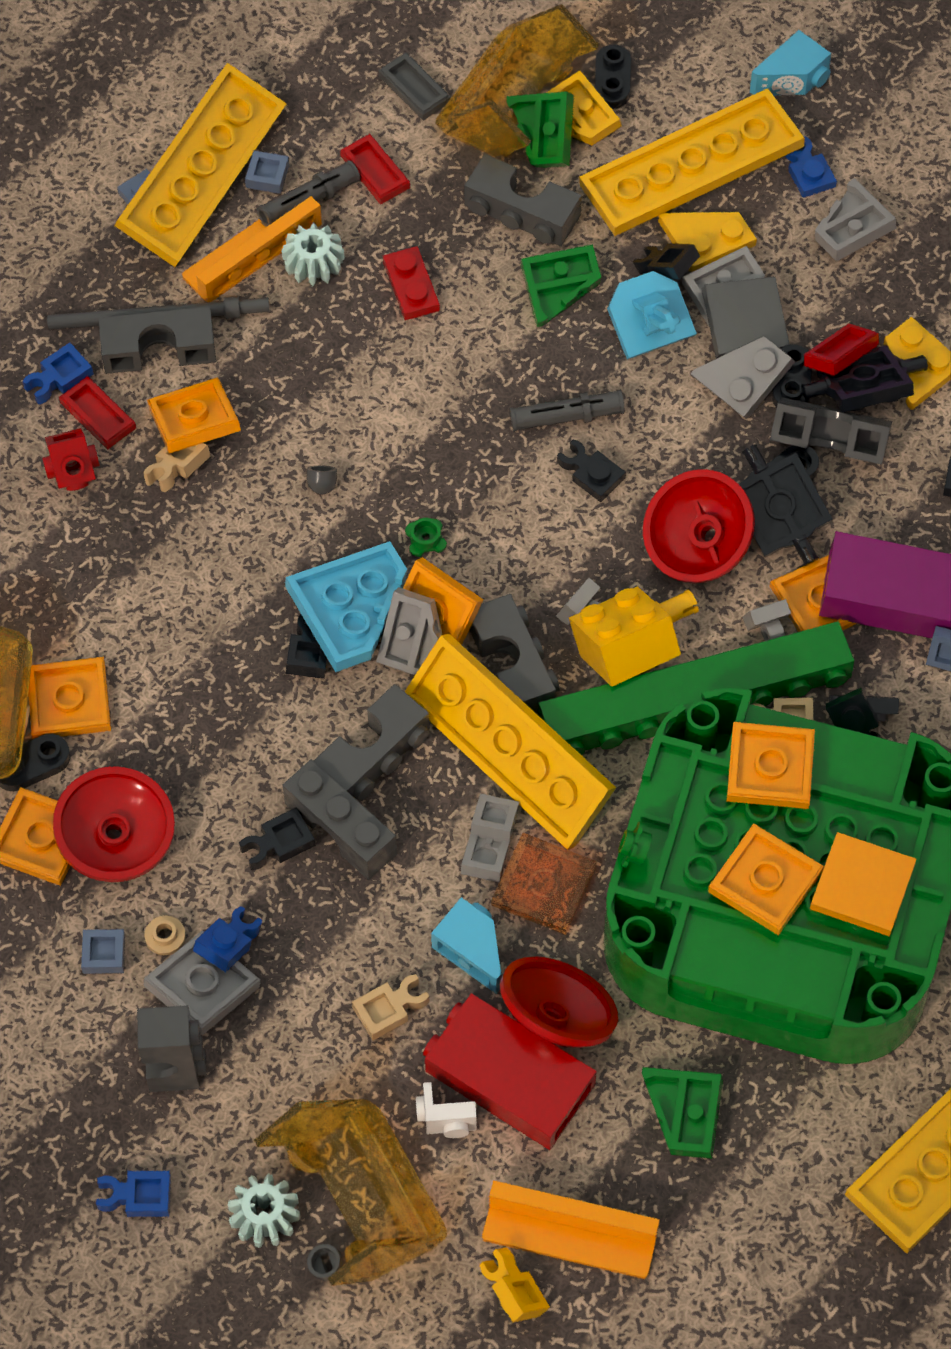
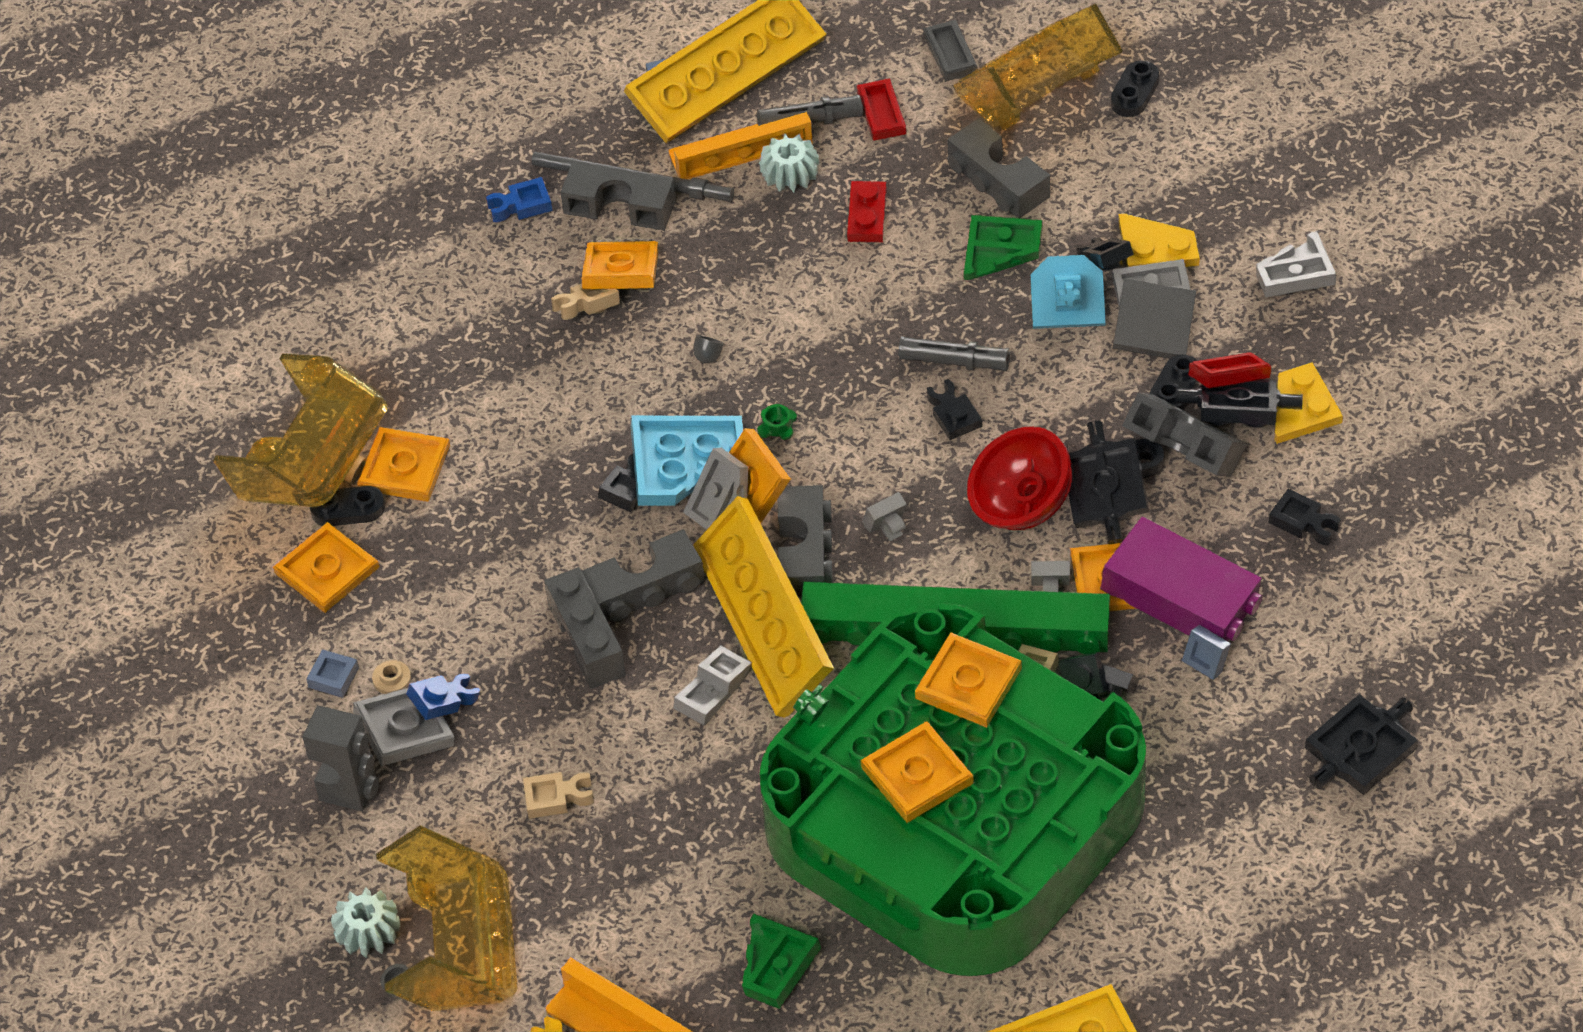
camera: 25 degrees right, 10 degrees down
(69, 447) = (504, 261): red brick -> none
(97, 412) = (540, 242): red tile -> none
(108, 801) = (383, 554): red dish -> none
(143, 1193) = (270, 878): blue plate -> none
(267, 172) = (782, 85): sand blue plate -> none
(283, 836) = (530, 629): black plate -> none
(450, 1118) = (559, 898): white bracket -> none
(470, 942) = (650, 762): medium azure slope -> none
(509, 1070) = (633, 878): red brick -> none
(544, 883) = (737, 736): clear orange tile -> none
(548, 124) = (1047, 111): green wing -> none
(558, 1002) = (699, 831): red dish -> none
(591, 114) = (1084, 107): yellow wing -> none
(630, 633) = (915, 547): yellow brick -> none
(691, 161) = (1170, 176): yellow plate -> none
(745, 374) = (1130, 367): light grey wing -> none
(793, 67) = (1302, 122): medium azure slope -> none
(810, 172) = (1279, 215): blue plate -> none
(863, 884) = (1002, 802): light orange tile -> none

